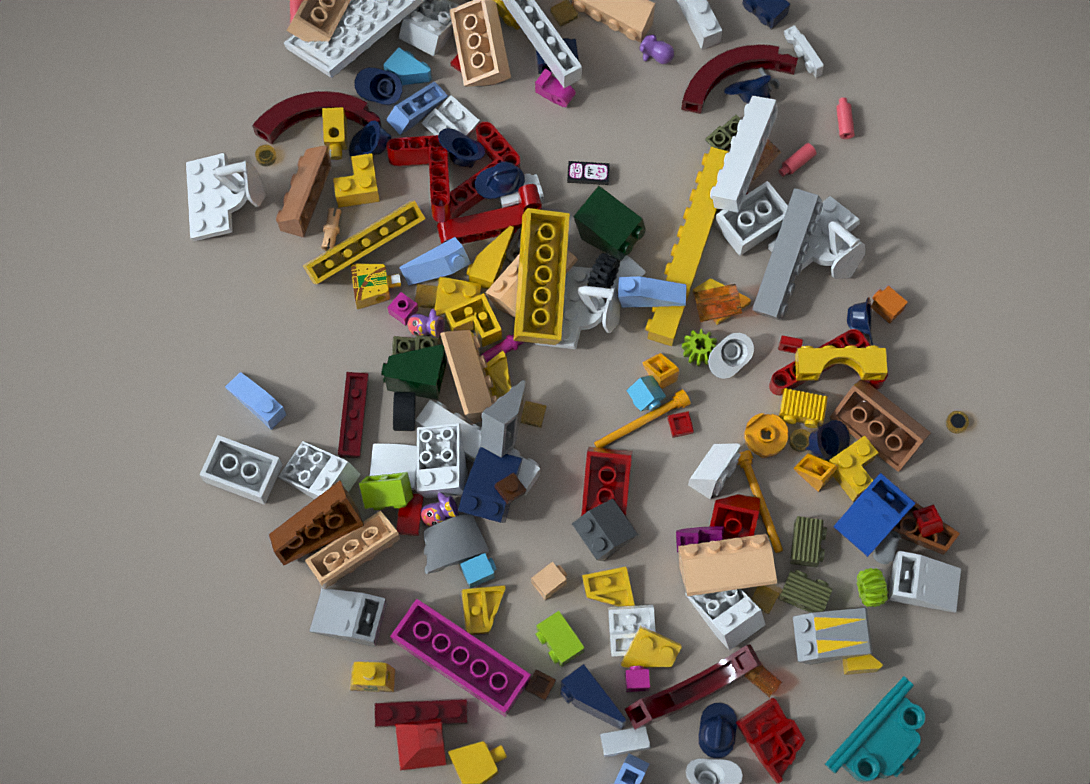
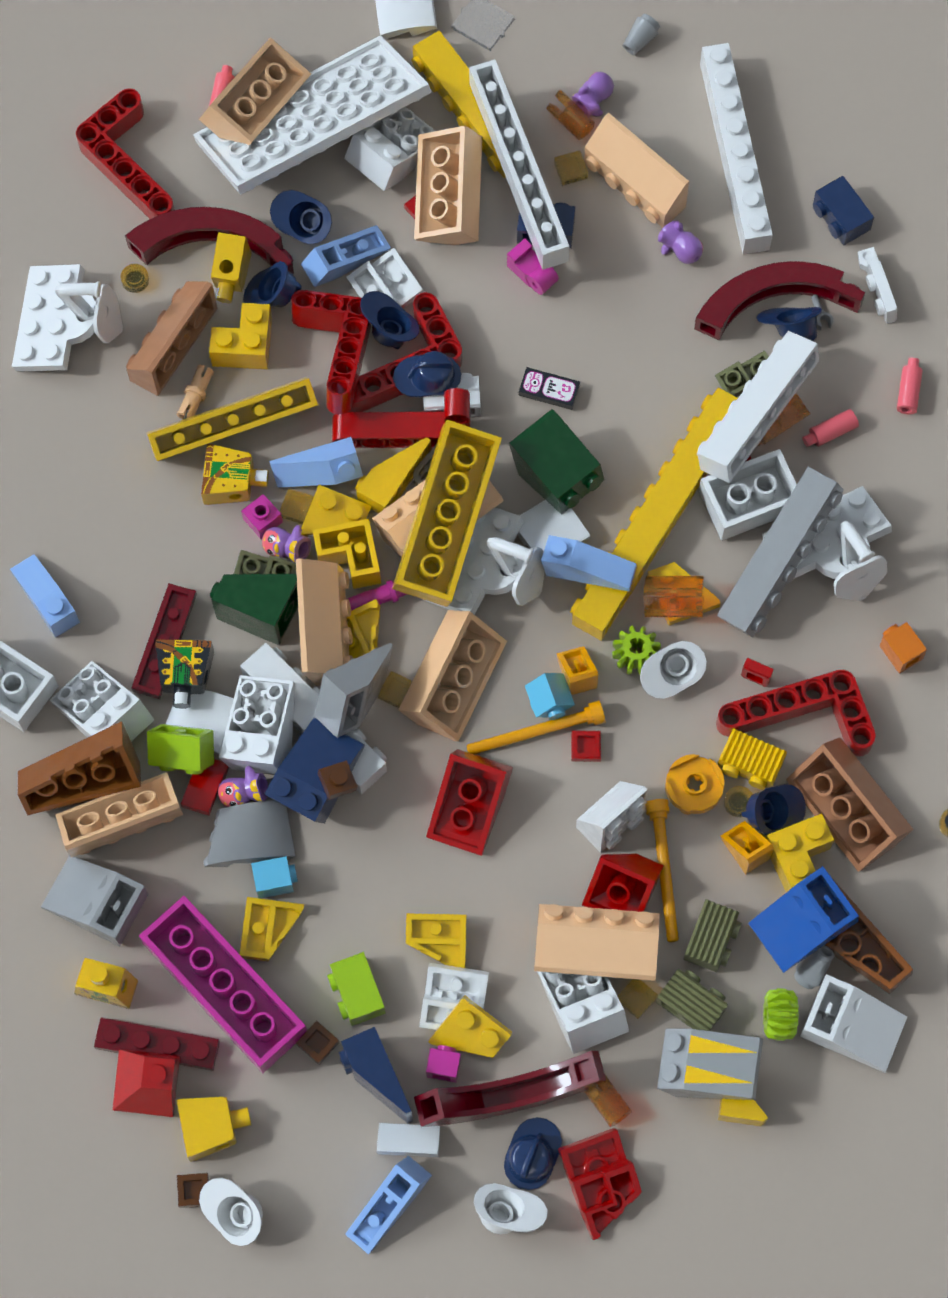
camera: 15 degrees right, 0 degrees up
(235, 73) = (120, 162): none -> red beam
(374, 431) = (184, 668): none -> torso
(404, 411) = (229, 650): black tyre -> none
(408, 68) = (345, 200): medium azure slope -> none
(549, 580) = (363, 910): light nougat brick -> none
(571, 393) = (453, 674): none -> light nougat slope
(604, 271) = (531, 524): black tyre -> none
(605, 529) = (450, 861): dark grey slope -> none
(699, 535) = (571, 895): magenta slope -> none
(860, 317) = (860, 658): dark blue piece -> none
(867, 362) = (850, 717): yellow arch -> none
(882, 738) = (742, 1213): teal brick -> none
(928, 520) = (875, 943): red slope -> none

